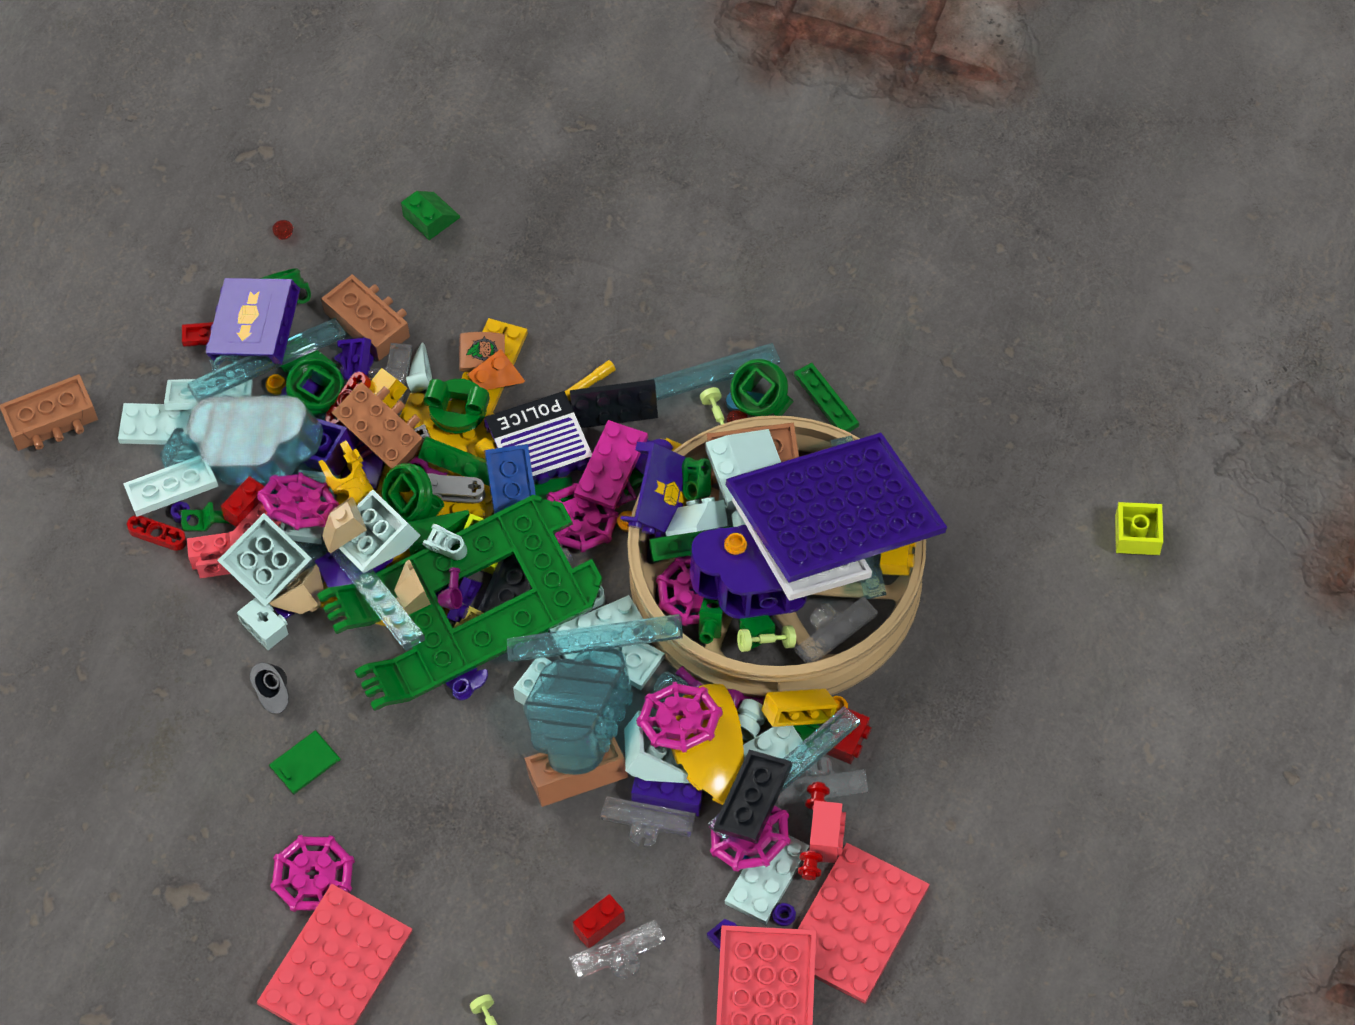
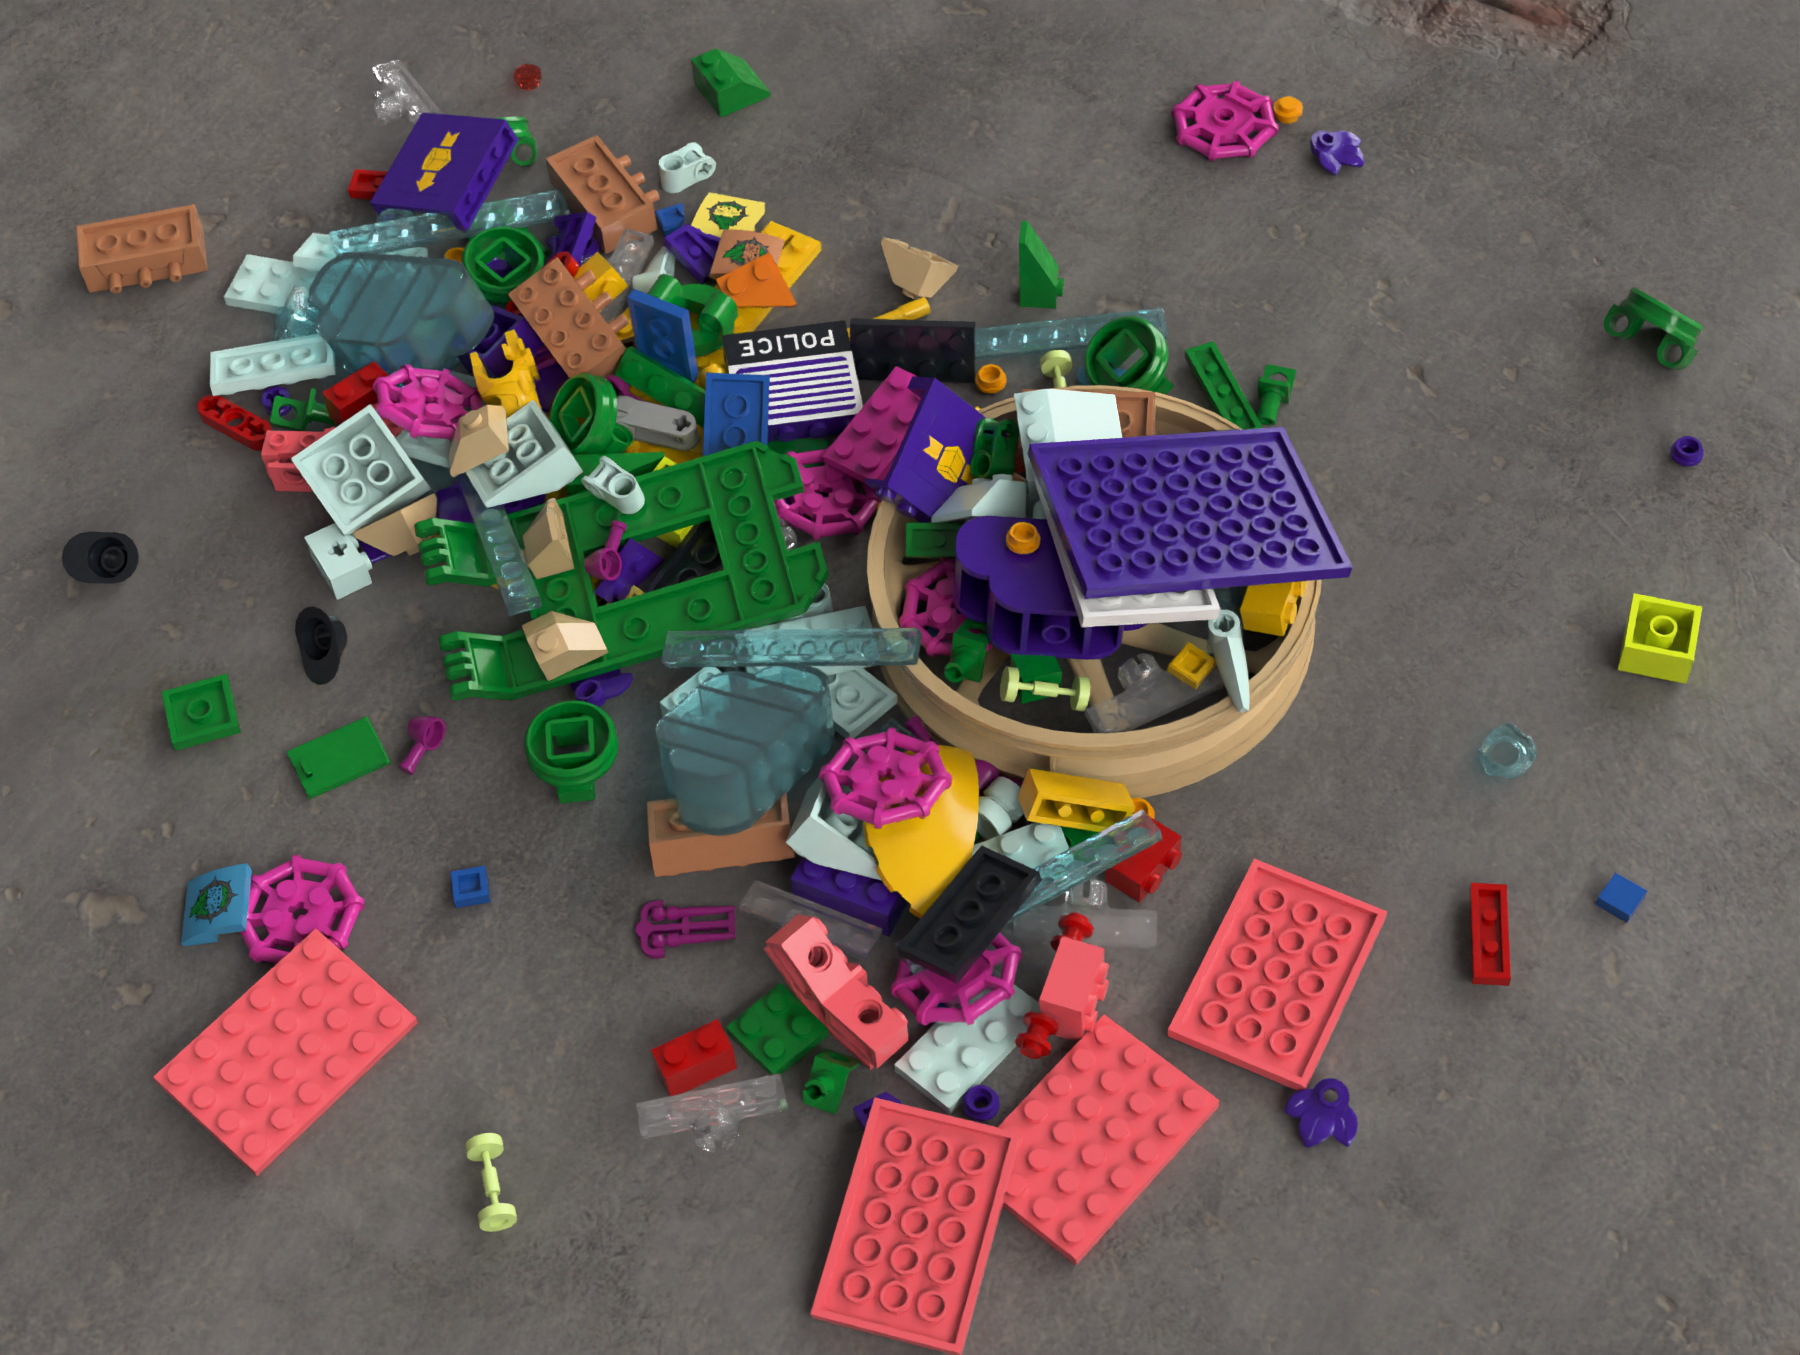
camera: 15 degrees right, 5 degrees down
(99, 651) = (100, 557): none -> black piece
(199, 261) = (401, 94): none -> clear plate
(202, 748) = (201, 712): none -> green plate
(257, 879) = (216, 904): none -> dark azure slope
(360, 735) = (428, 735): none -> magenta bar
(417, 286) = (683, 166): none -> light aqua piece
(417, 327) = (670, 218): none -> blue tile
(420, 834) = (470, 886): none -> blue tile
(437, 657) = (563, 642): none -> tan slope
(443, 351) = (693, 250): none -> dark purple wing
(450, 426) = (663, 333): none -> blue tile
(456, 319) = (726, 213): none -> light yellow slope
(458, 713) = (572, 725): none -> green piece
(542, 841) = (646, 930): none -> magenta piece
(599, 340) = (916, 270): none -> tan slope
(645, 892) = (777, 1030): none -> green plate
(669, 414) = (990, 379): none -> light orange plate
(678, 863) = (836, 991): none -> coral brick
(684, 332) = (1037, 272): none -> green slope
(686, 918) = (828, 1080): none -> green bracket
(785, 199) = (1238, 105): none -> dark pink plate
(822, 175) = (1287, 109): none -> light orange plate
(855, 606) = (1191, 665): none -> yellow tile
(859, 394) = (1274, 392): none -> green bracket
(862, 203) = (1336, 150): none -> dark purple plate
(881, 599) = (1231, 657): none -> light aqua piece
(947, 796) = (1277, 975): none -> coral plate
(994, 883) = (1323, 1118): none -> dark purple plate
(1070, 617) = (1508, 733): none -> clear light blue piece
(1071, 745) = (1489, 934): none -> red plate
(1100, 299) = (1680, 329): none -> green piece
(1132, 387) = (1687, 451): none -> dark purple plate
(1145, 705) = (1621, 897): none -> blue tile

